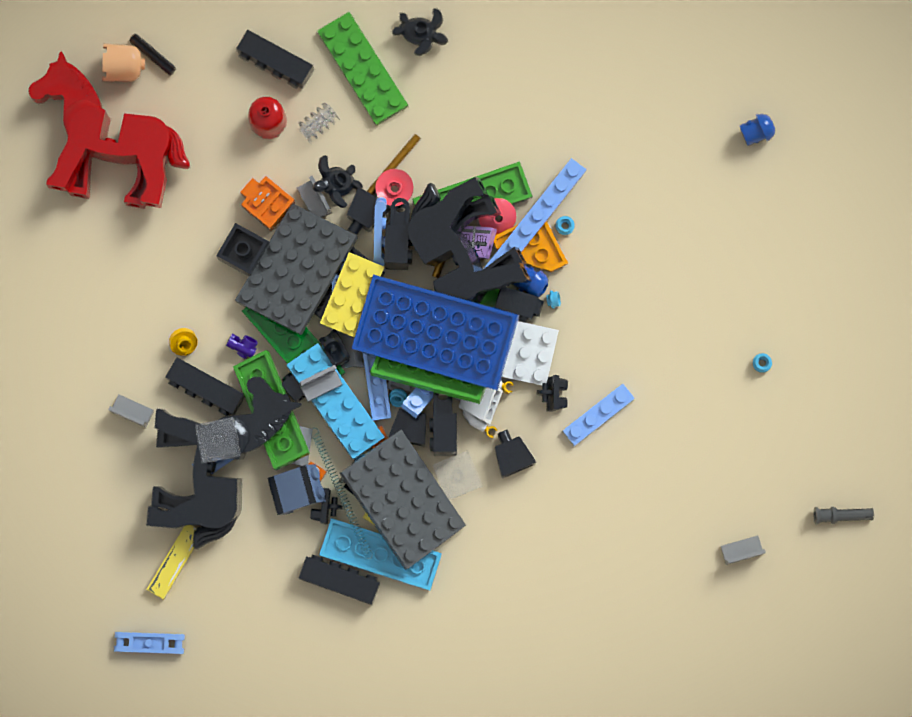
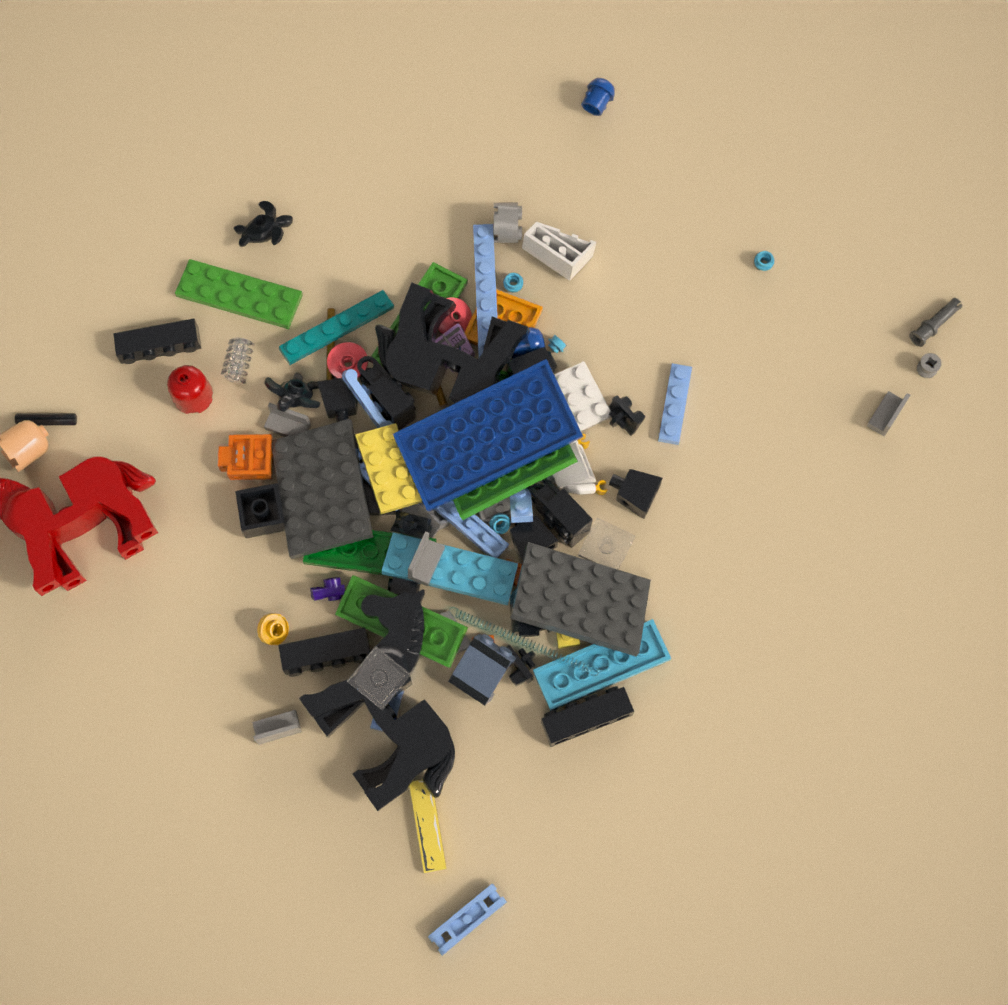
camera: 40 degrees left, 10 degrees down
(408, 154) = (336, 327): none -> teal plate
(597, 177) = (507, 222): none -> light grey brick
(616, 228) = (558, 250): none -> white wedge
(802, 543) = (926, 370): none -> light grey wheel

